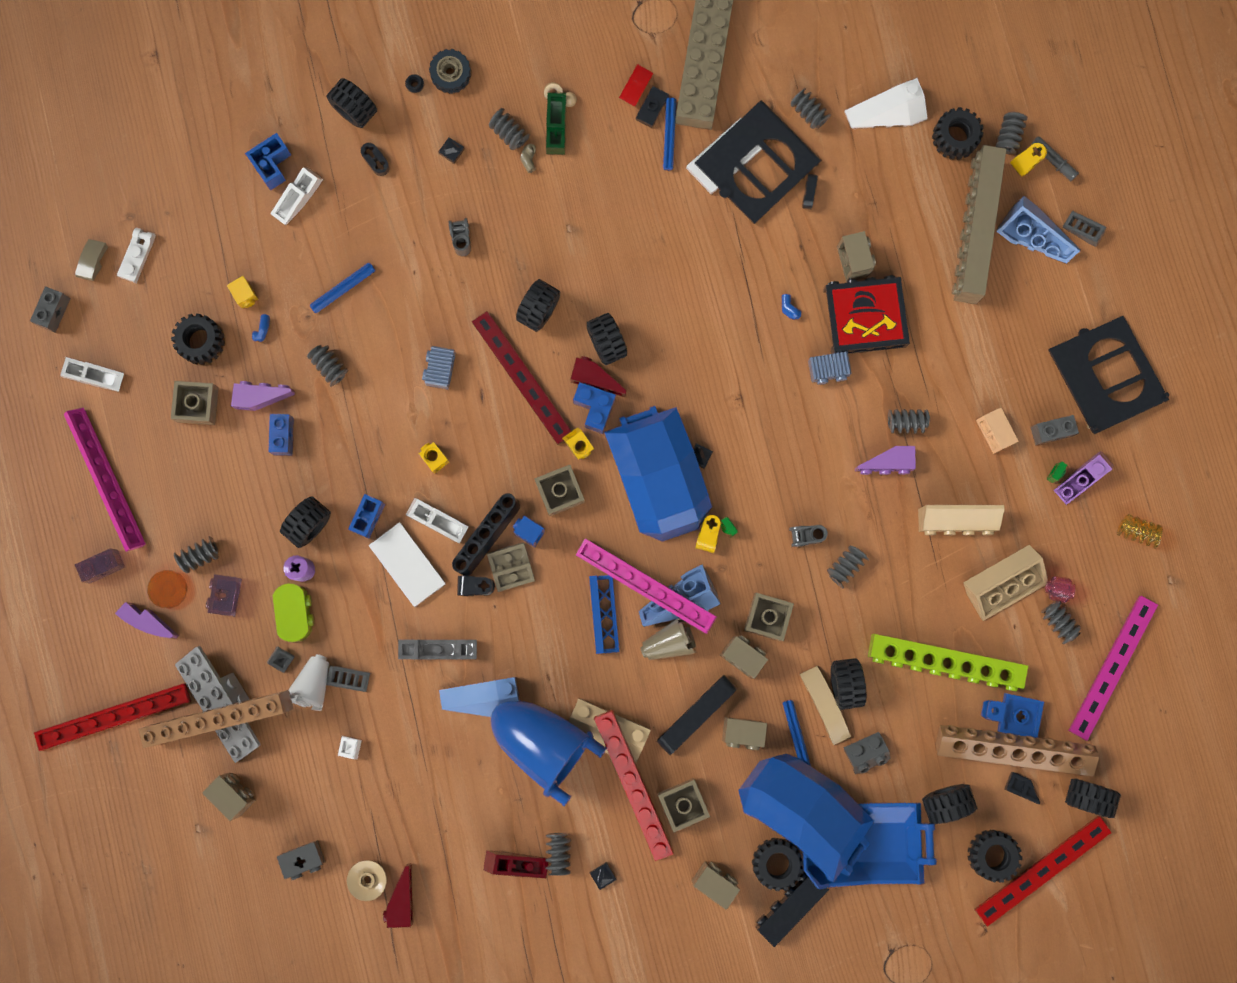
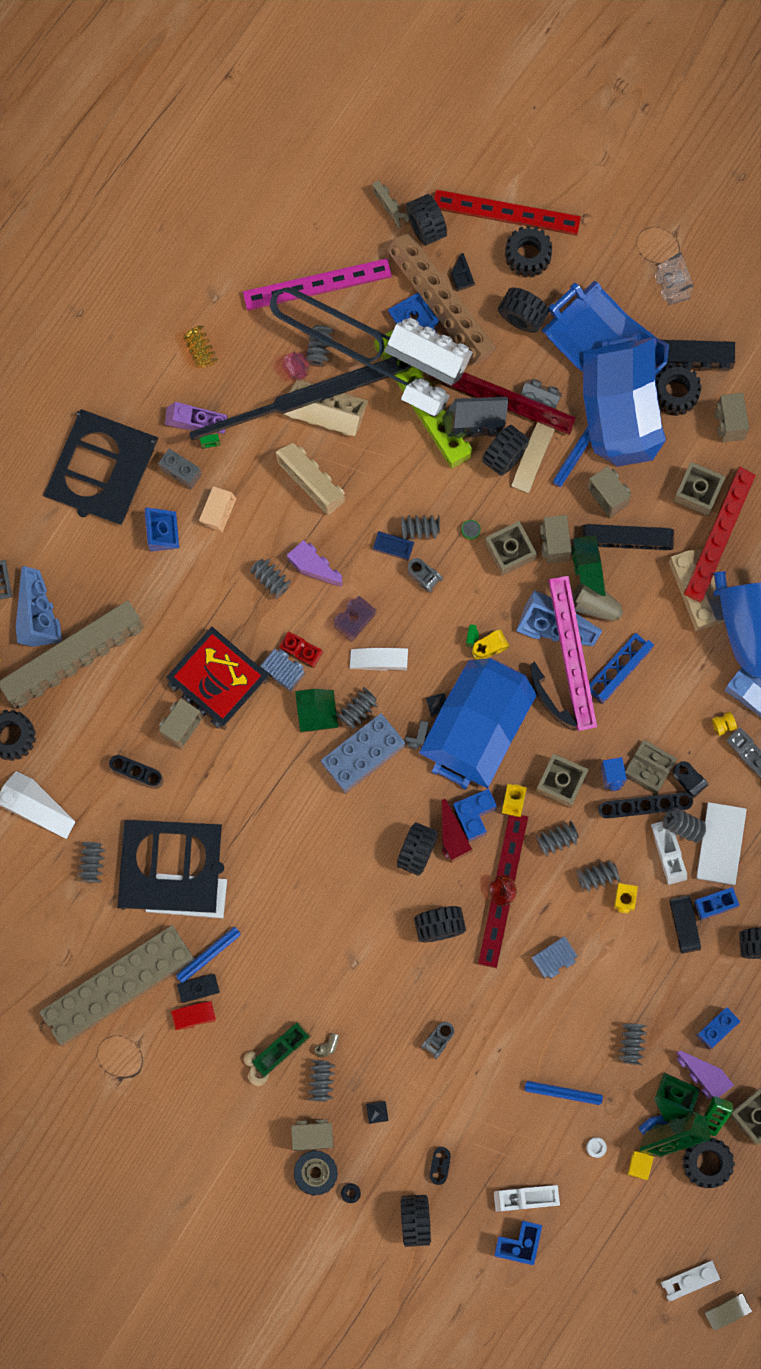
camera: 125 degrees left, 5 degrees down
(223, 374) = (721, 1104): none -> green slope
(235, 329) = (676, 1135): none -> dark green slope
(262, 358) = (675, 1097): none -> dark green slope
(284, 276) = (596, 1147): none -> white tile
(375, 482) = (685, 924): none -> black beam
(443, 547) = (684, 825): none -> dark grey piece
(466, 452) = (598, 875): none -> dark grey piece
(475, 87) = (312, 1136): none -> dark tan brick
(492, 646) = (724, 723): none -> yellow wheel
(519, 373) = (503, 890): none -> clear red hair
(520, 448) = (558, 838): none -> dark grey piece
(604, 537) = (564, 717): none -> black slope
(688, 423) = (422, 735): none -> dark grey bracket
(701, 659) = (588, 563): none -> dark green slope
(713, 367) = (363, 753): none -> sand blue brick
(749, 394) = (358, 708): none -> dark grey piece
(773, 444) = (379, 659): none -> white slope
(777, 365) = (316, 710): none -> dark green slope
(788, 309) = (265, 740): blue arm -> none
(809, 192) = (158, 806): black beam -> none
(810, 603) = (471, 529): none -> tile
(814, 445) = (353, 628): none -> clear purple brick
(833, 395) = (301, 649): none -> red slope
(850, 534) = (393, 546): none -> dark blue tile
(855, 192) = (129, 765): none -> black beam
(868, 949) = (674, 280): none -> clear slope
(892, 723) = (516, 402): none -> dark red tile
(895, 684) = (476, 417): none -> black slope
(1001, 684) = (408, 342): none -> piece
(1019, 374) = (161, 529): none -> blue slope
(1025, 578) = (309, 395): none -> black piece
(1129, 784) = (390, 205): none -> dark tan plate

